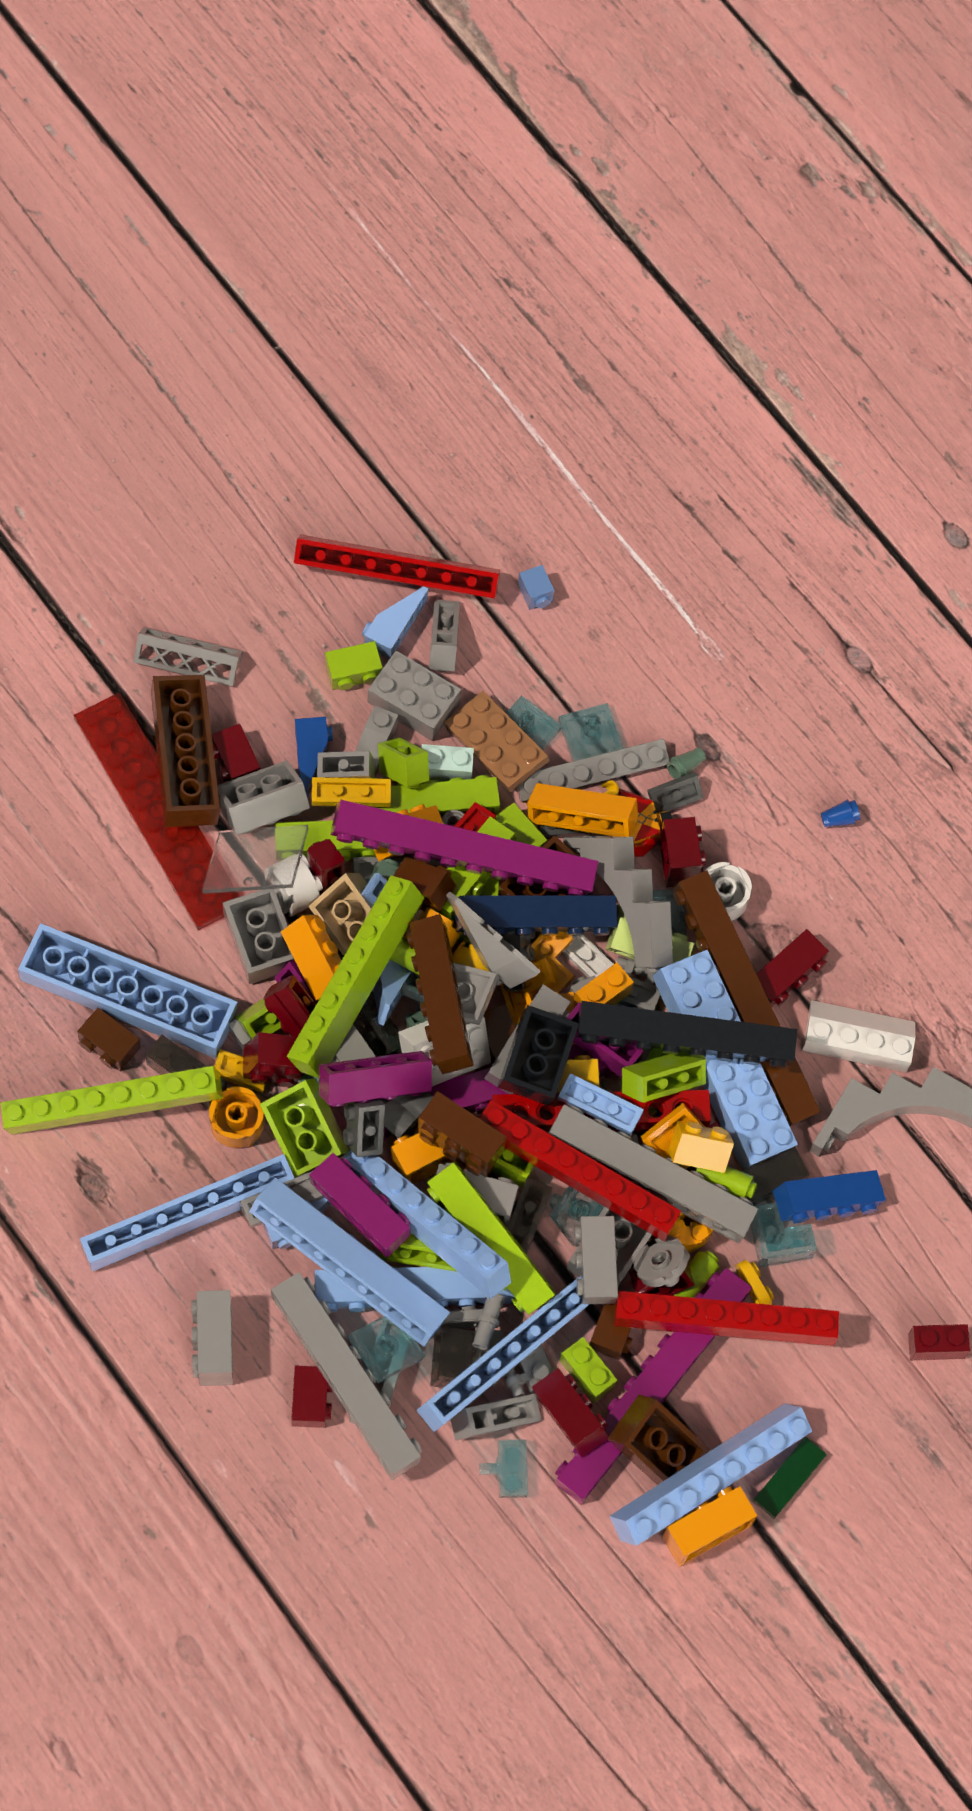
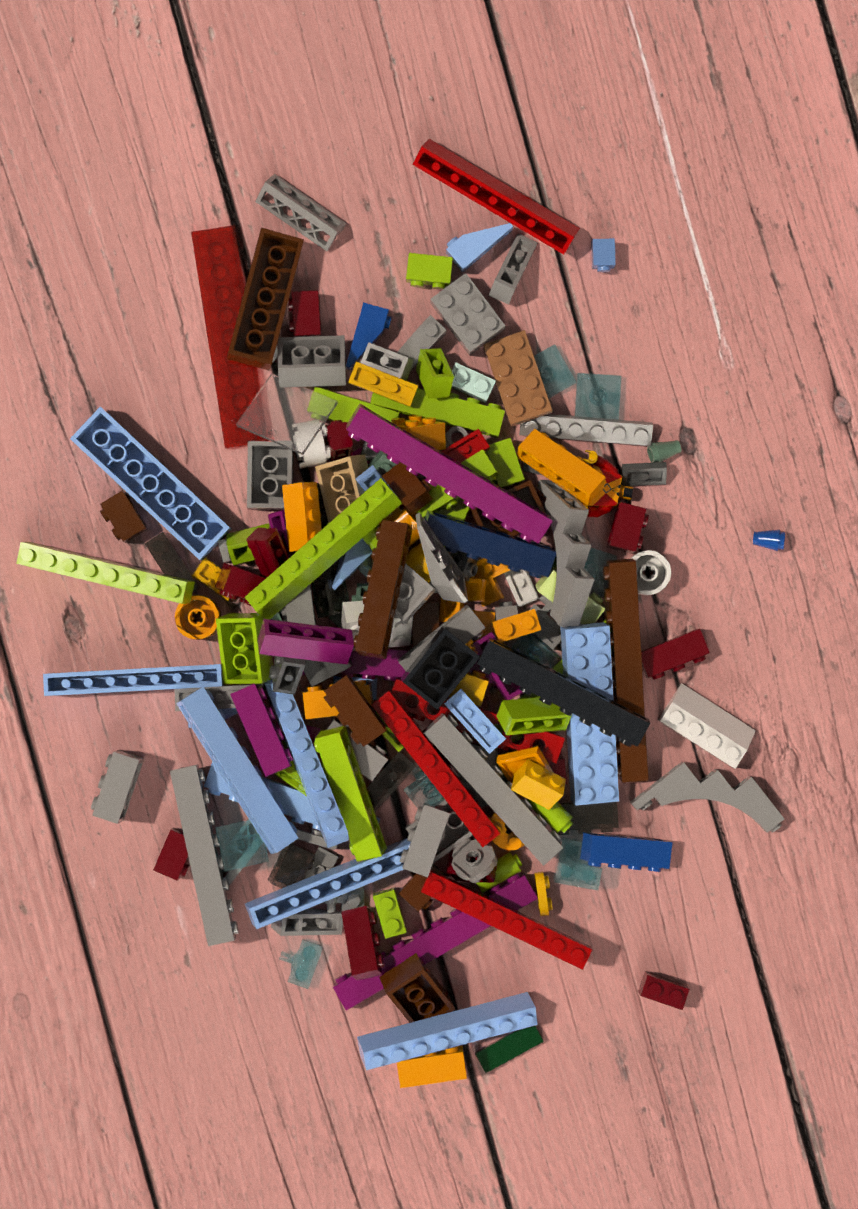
camera: 25 degrees right, 20 degrees up
(488, 1322) = (322, 857): light grey pin -> none

